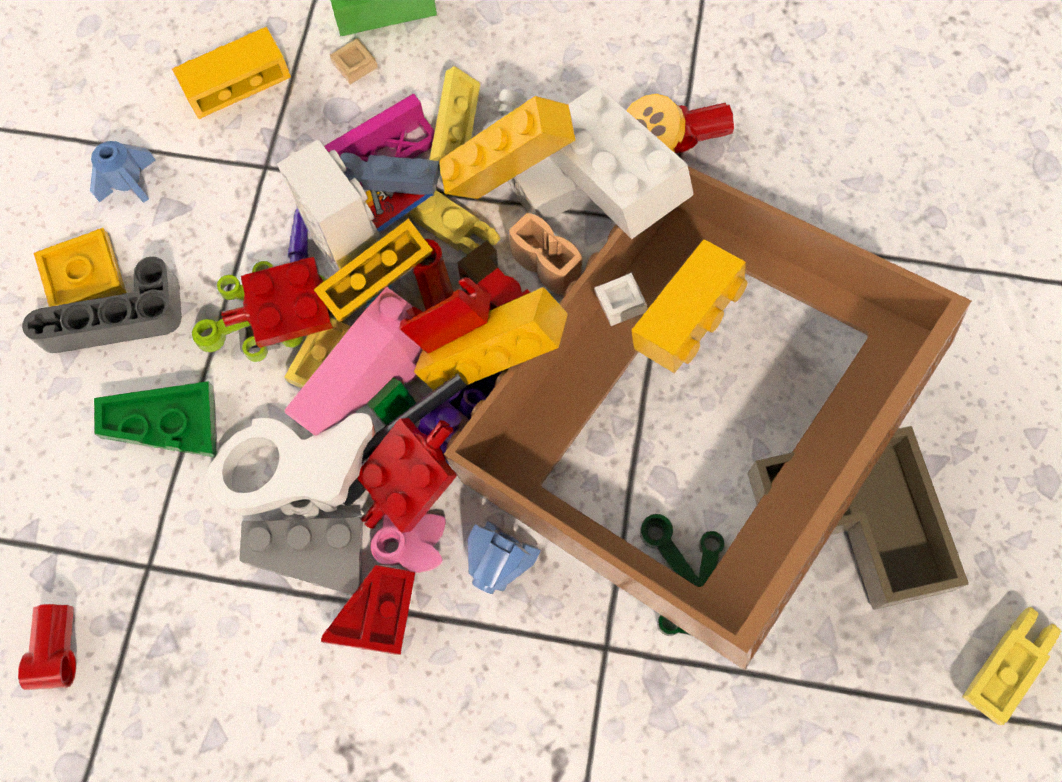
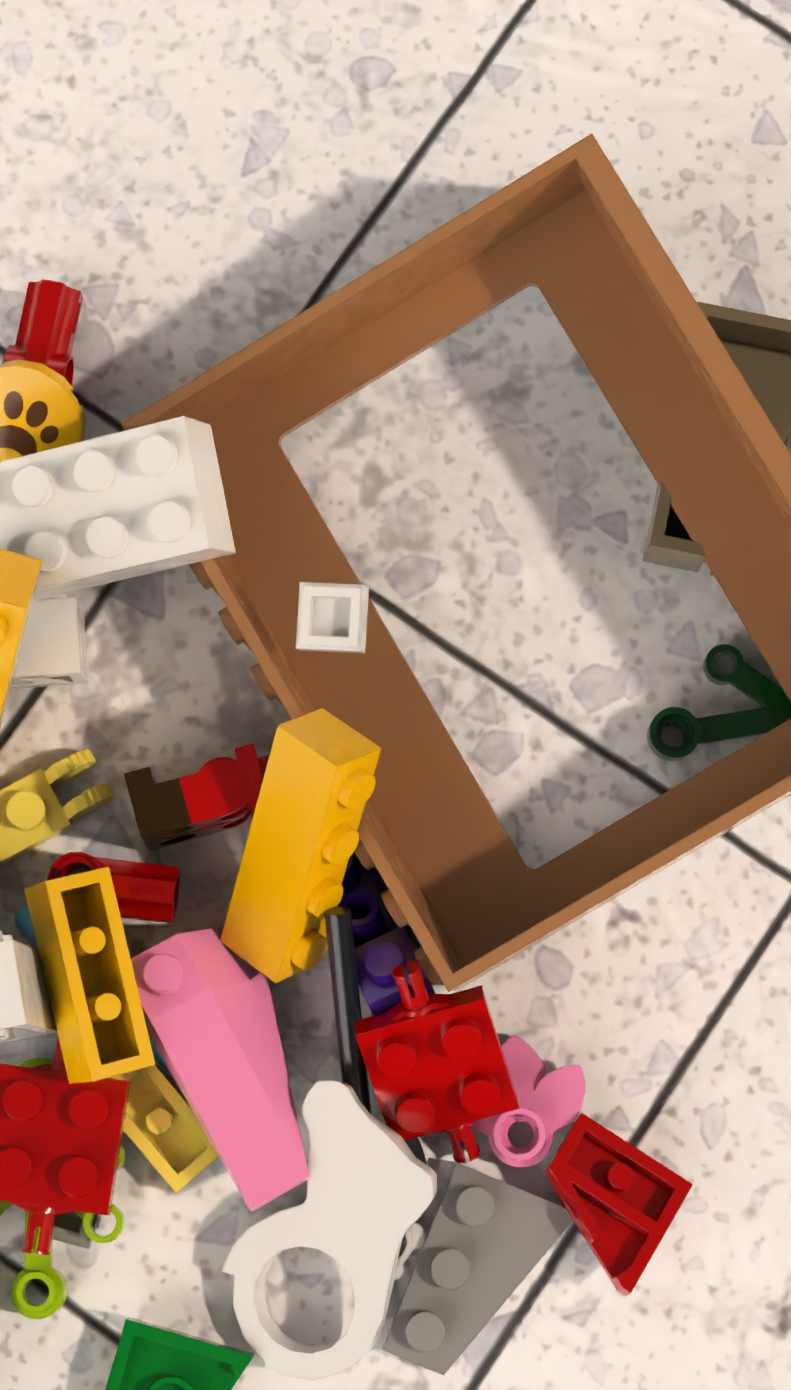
camera: 70 degrees left, 10 degrees up
(391, 401) = (302, 1039): green tile -> none
(448, 318) = (230, 890): red hinge -> none
(497, 557) = (616, 979): medium blue brick -> none
(547, 255) = (148, 698): light nougat brick -> none
(690, 306) = (406, 523): yellow brick -> none

